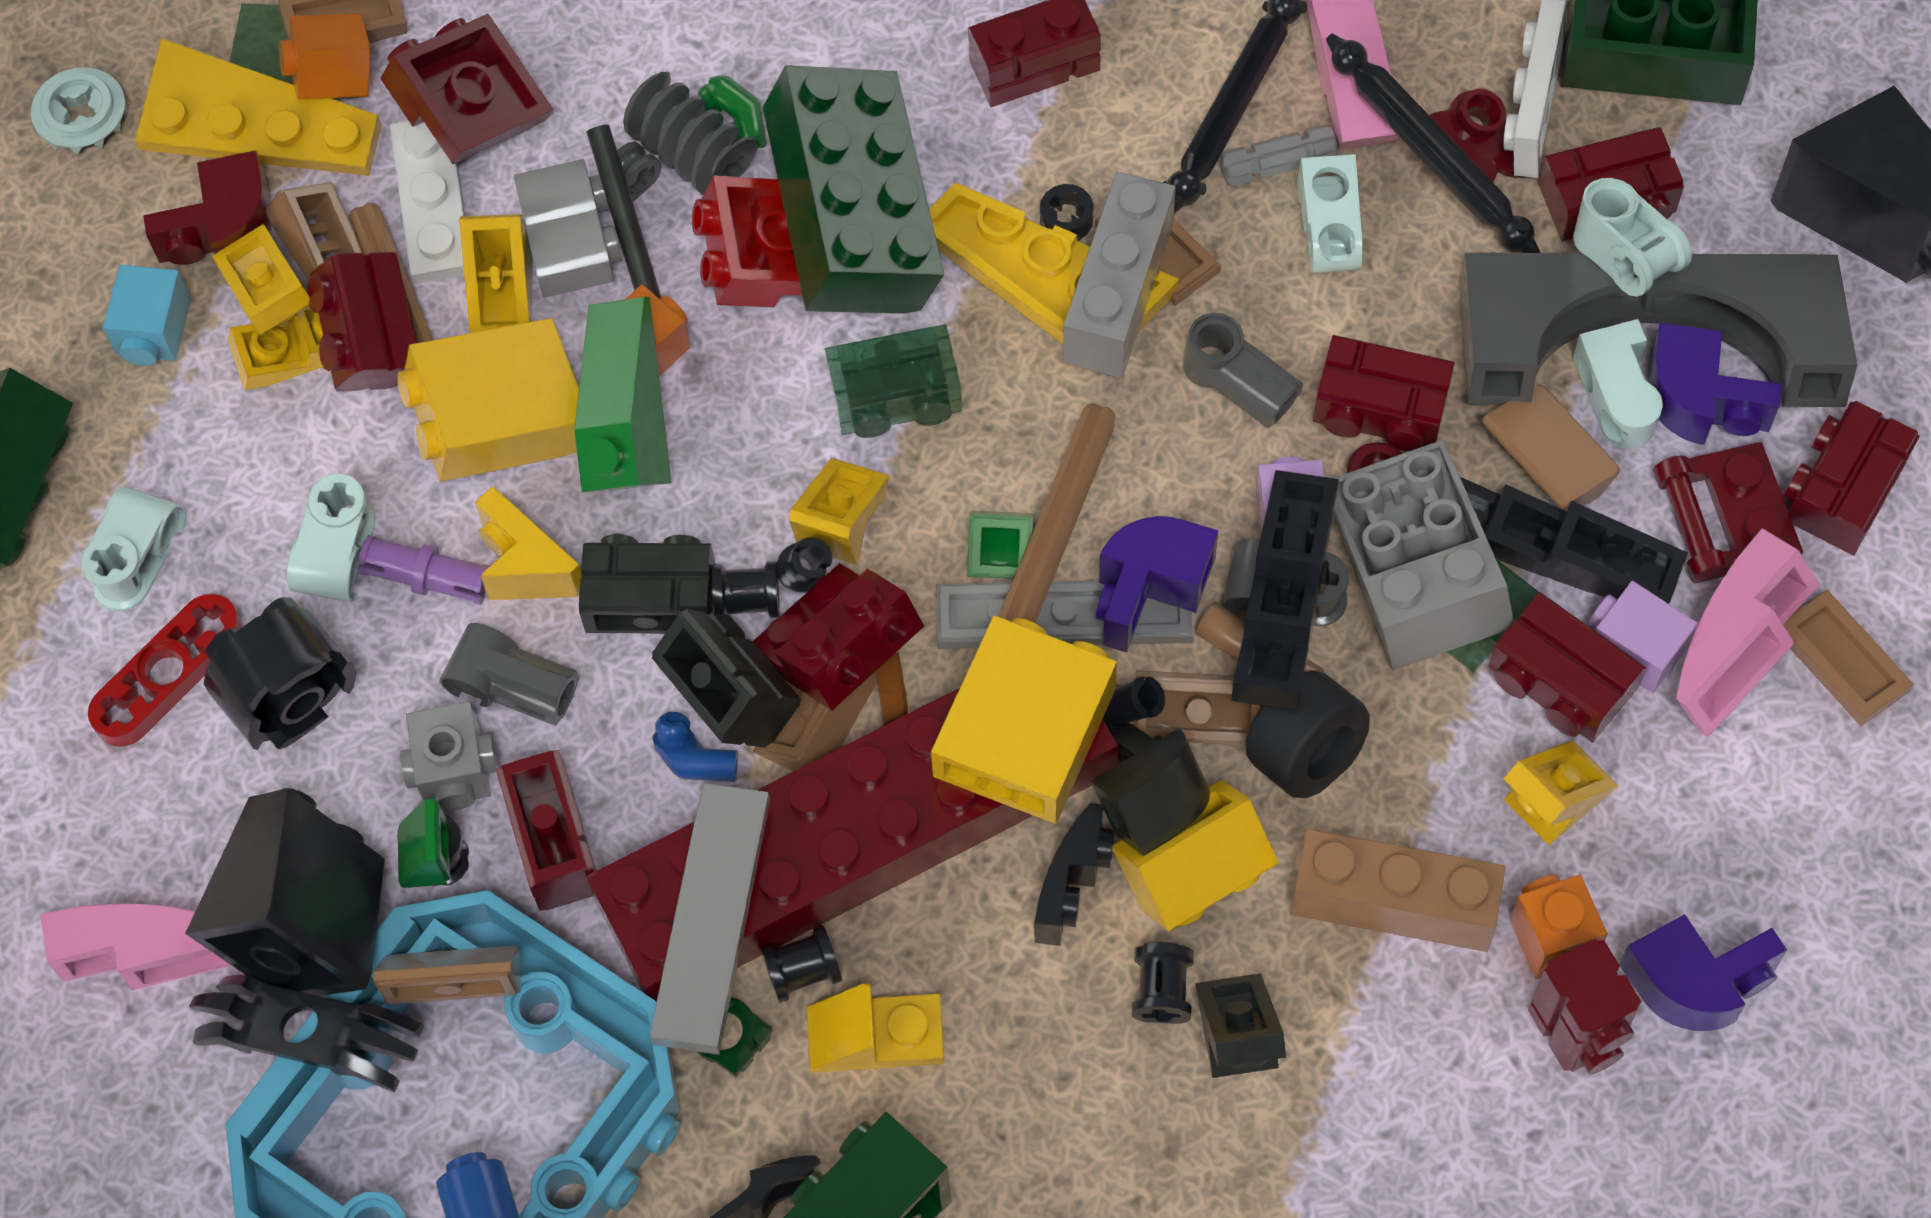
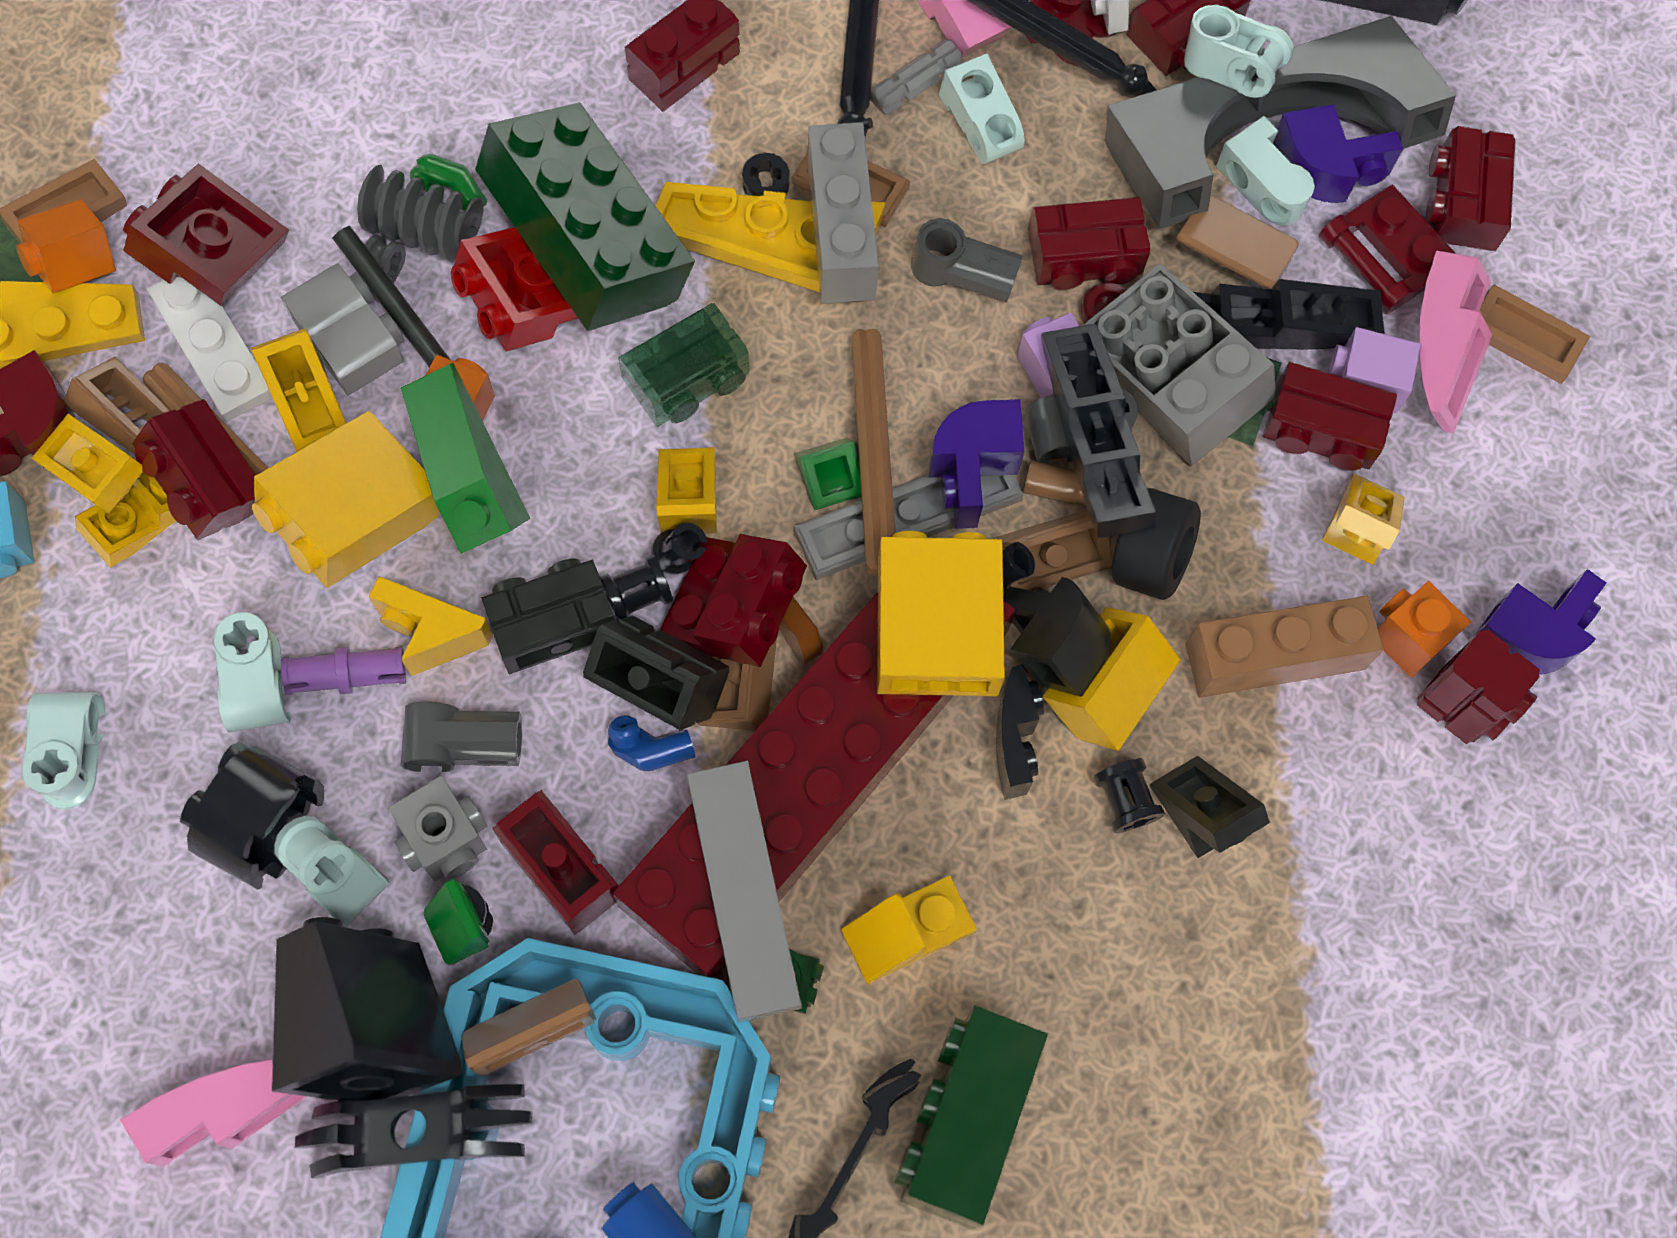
camera: 30 degrees left, 5 degrees up
(164, 644) = (116, 853): red beam -> none
(328, 754) = (328, 868): none -> light aqua piece
(801, 963) = (823, 894): black bush -> none

